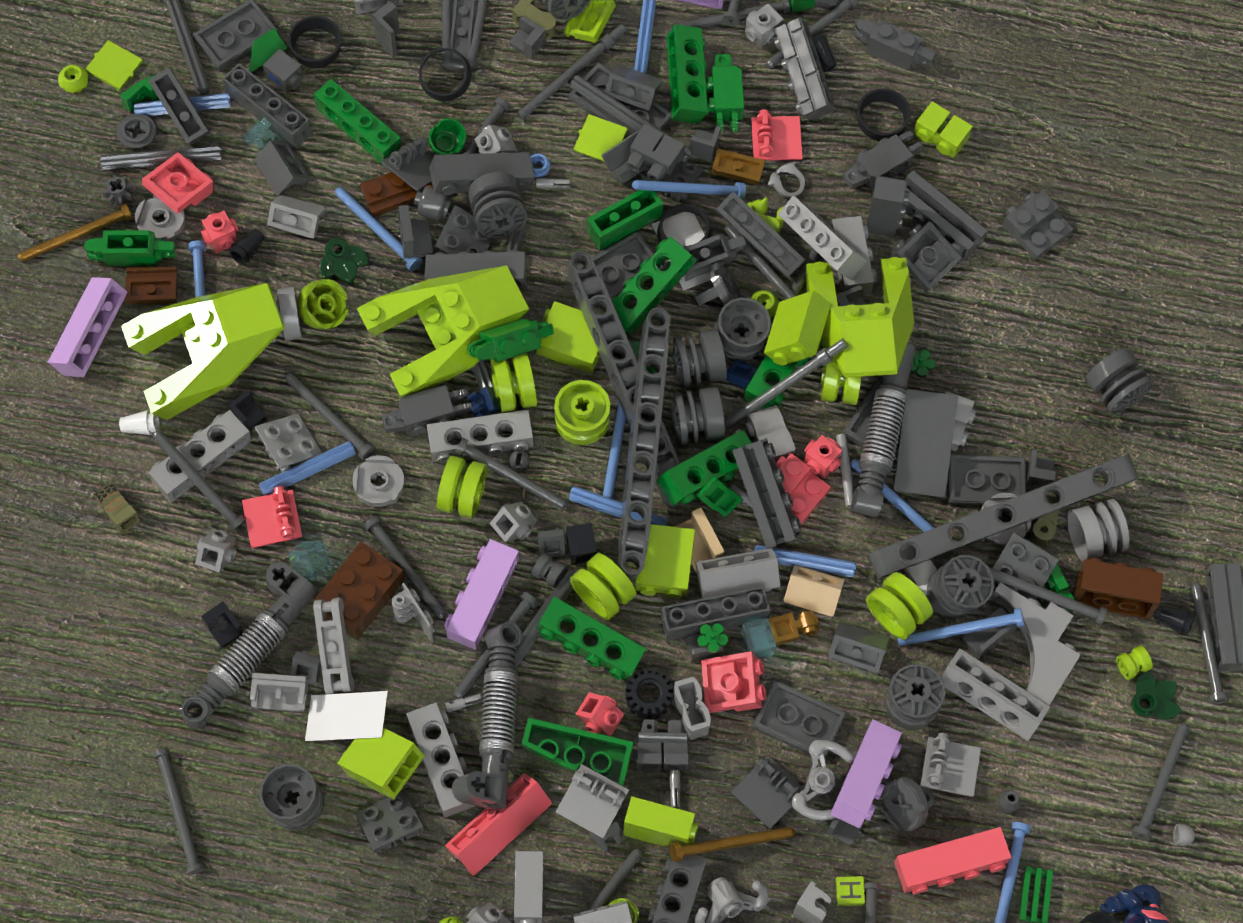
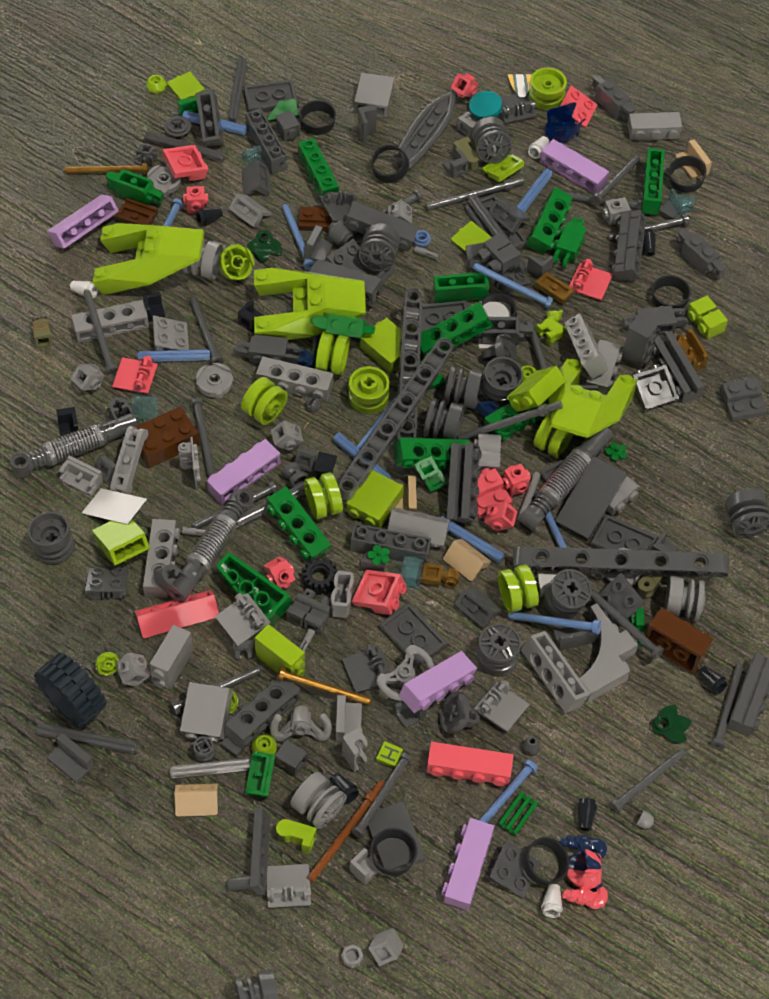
camera: 25 degrees right, 10 degrees down
(377, 371) = (247, 314): none -> black panel
(447, 137) = (372, 198): green hair -> none
(510, 474) = (277, 377): dark grey bar -> none
(760, 235) = (545, 330): dark grey piece -> none
(776, 182) = (590, 302): light grey piece -> none
(779, 869) = (347, 717): none -> light grey panel
(829, 516) = (500, 516): none -> coral brick
(948, 182) = (693, 349): none -> pearl gold hinge
(1113, 858) = (586, 812): none -> black cone
(1134, 662) = (667, 694): lime wheel -> none

